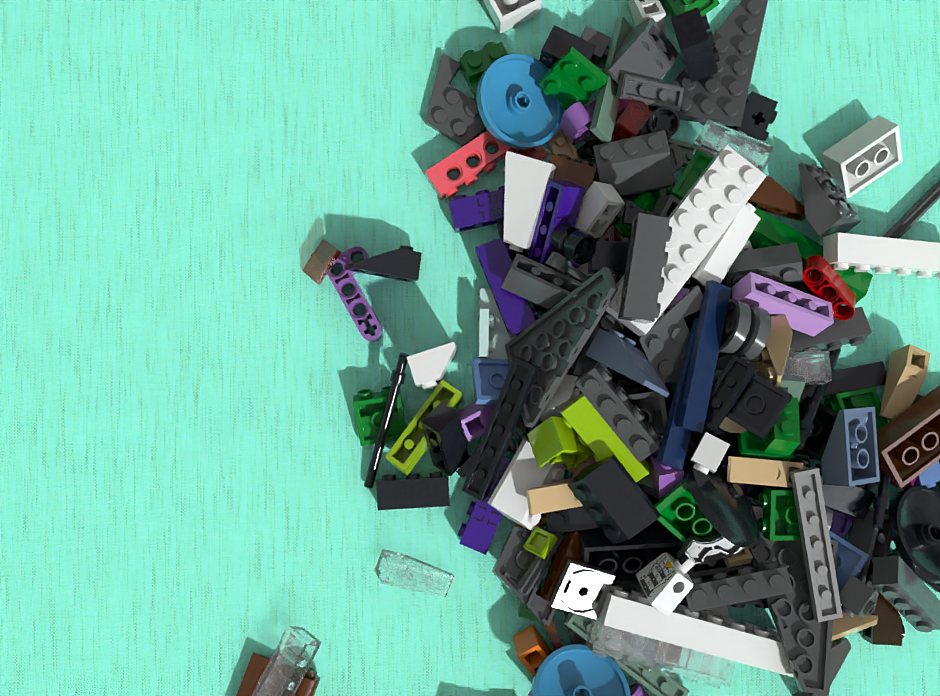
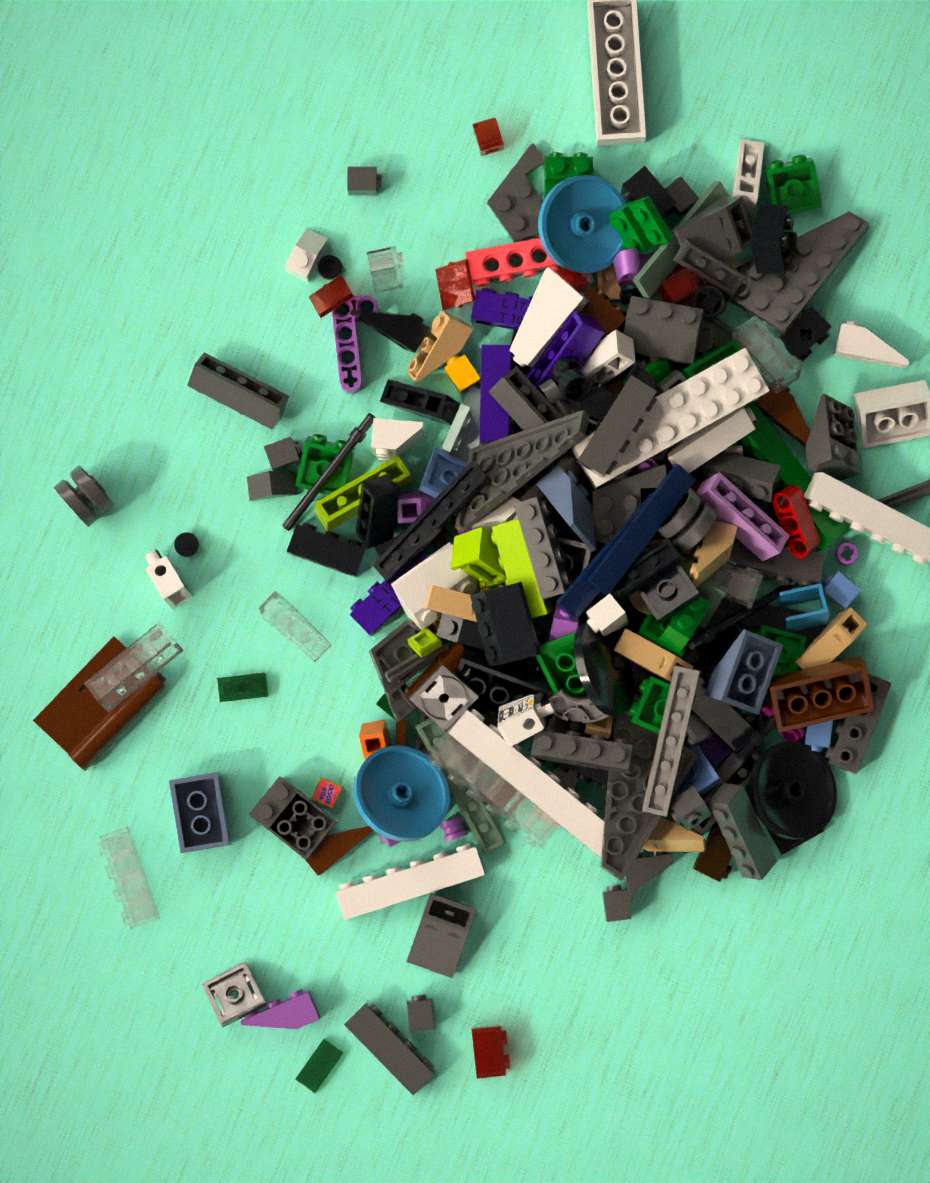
camera: 25 degrees right, 0 degrees up
(170, 539) = (84, 495): none -> dark grey wheel
(272, 381) = (238, 390): none -> dark grey brick
(279, 582) = (167, 579): none -> white torso
(283, 234) = (306, 255): none -> white slope
(285, 539) = (186, 544): none -> black tile
(307, 147) = (363, 181): none -> dark grey brick
(310, 236) = (330, 267): none -> black tile
(337, 420) = (283, 453): none -> dark grey brick
(339, 453) = (271, 485): none -> dark grey slope
(360, 213) = (386, 269): none -> clear brick
(390, 648) = (242, 687): none -> clear green plate
(401, 63) = (488, 136): none -> clear red panel
(428, 204) = (455, 284): none -> clear red piece
(438, 261) = (442, 342): none -> tan slope
(441, 322) = (420, 402): none -> black slope
(467, 281) = (461, 373): none -> yellow brick
(812, 107) = (863, 345): none -> white slope
(872, 344) = (803, 595): none -> dark azure piece
(881, 300) = (840, 549): none -> medium lavender bush
(887, 333) = (839, 590): none -> medium blue brick

